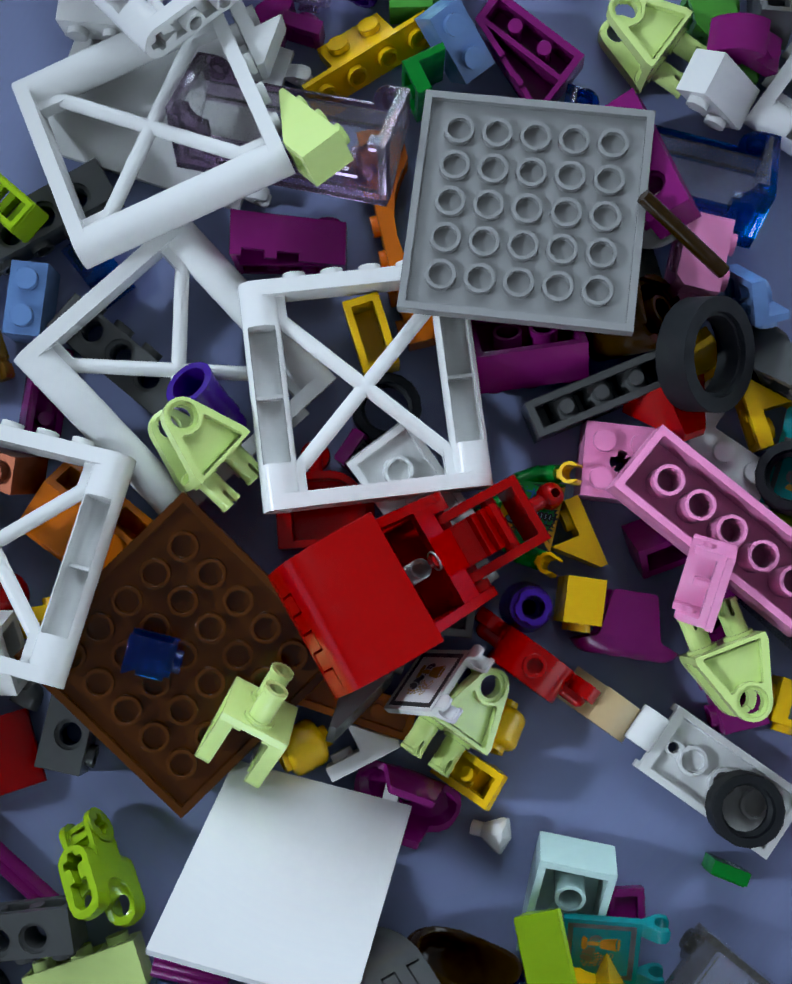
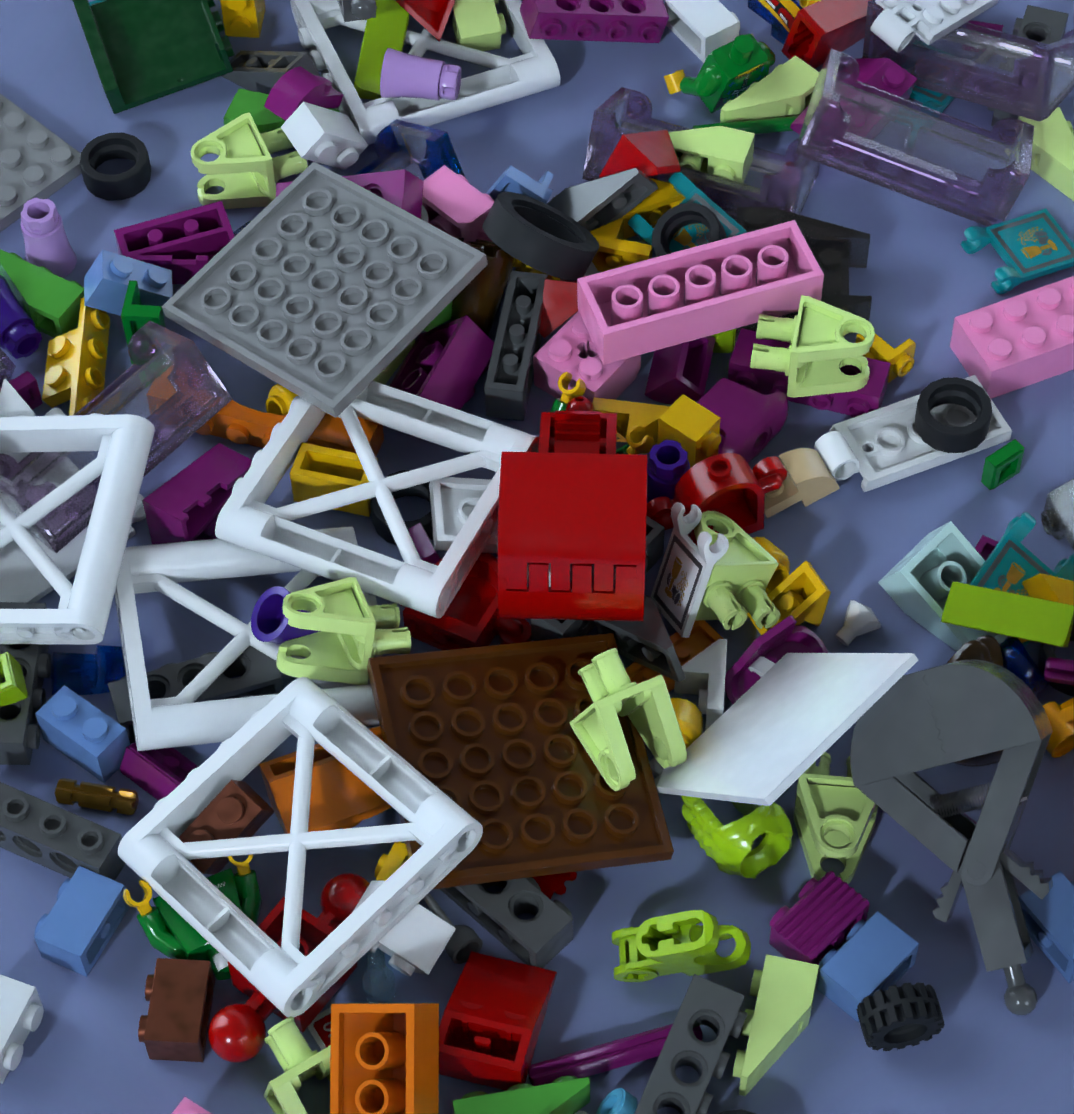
camera: 55 degrees left, 30 degrees down
(152, 654) = (500, 759): clear blue window -> none
(311, 140) = (147, 391): yellowish green slope -> none
(683, 234) = (430, 192): dark brown bar -> none
(704, 582) = (730, 310): bright pink hinge -> none

